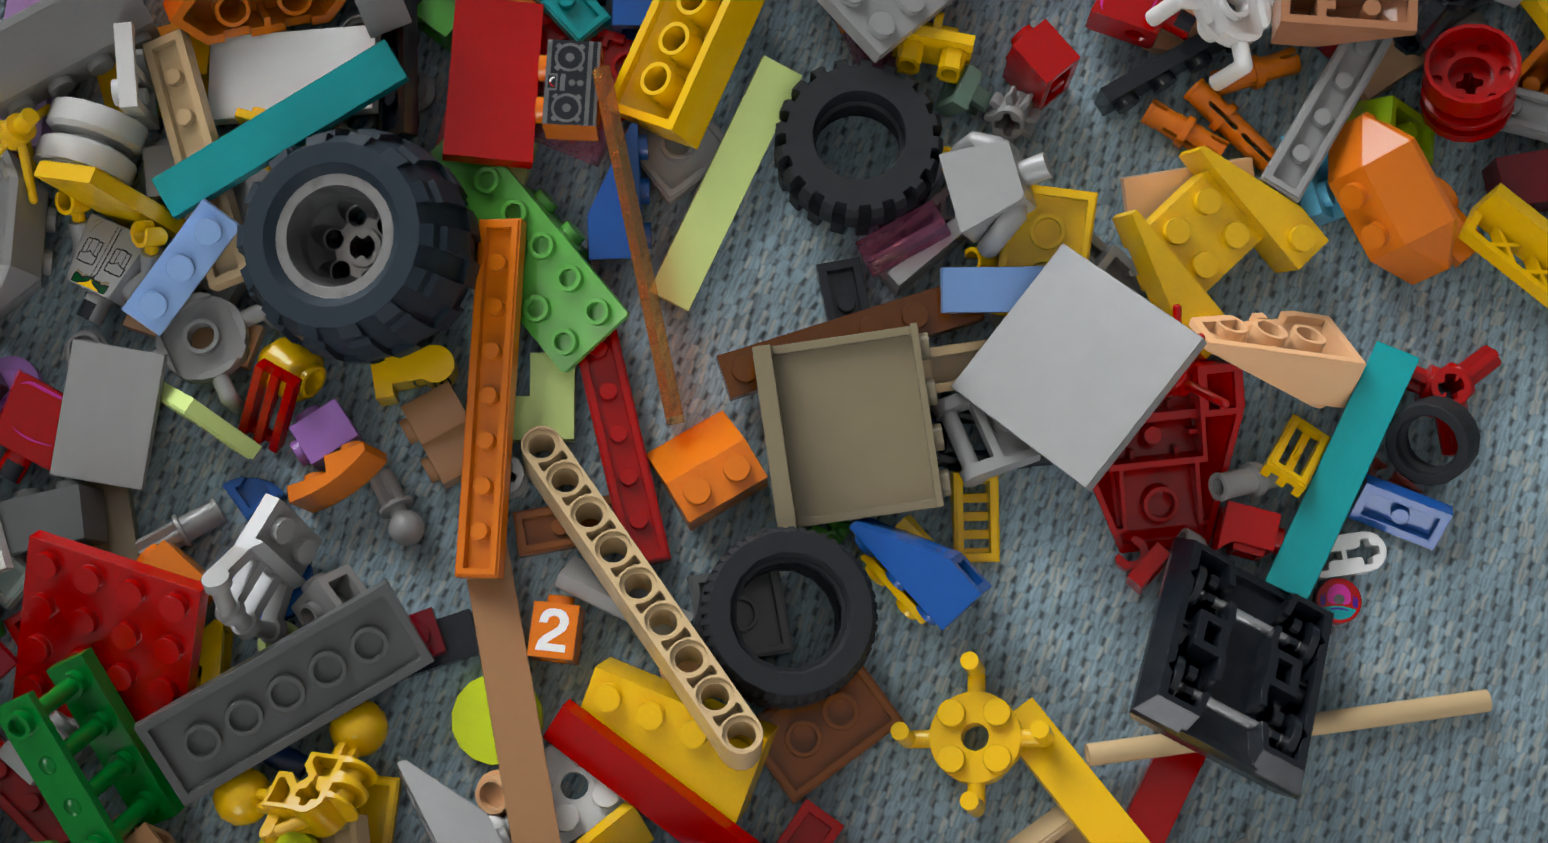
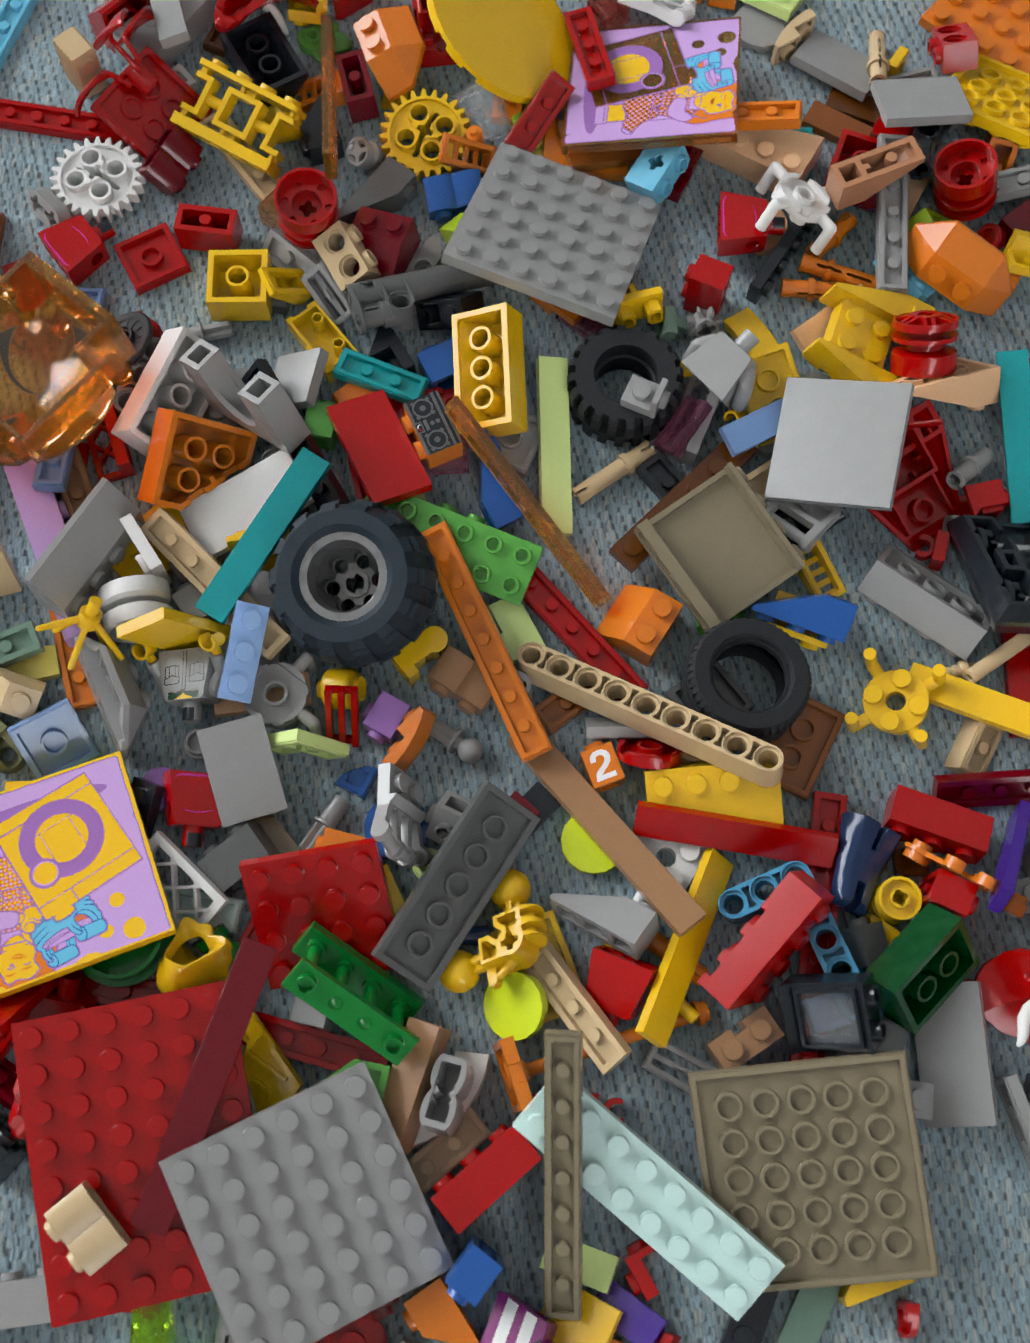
camera: 25 degrees left, 5 degrees down
(490, 794) = (618, 885): light nougat plate -> none
(615, 646) = (648, 753): none -> red tile
(785, 255) = (613, 472): none -> tan pin
(863, 178) = (645, 396): none -> light grey bracket
(1070, 153) = (747, 319): none -> yellow slope
(1083, 735) = (958, 669): none -> tan piece
(1087, 620) = (925, 601): none -> light grey slope
(1276, 286) = (924, 344): none -> red wheel
(1285, 472) = (980, 441): yellow tile -> none
(1470, 177) = (993, 234): none -> red tile

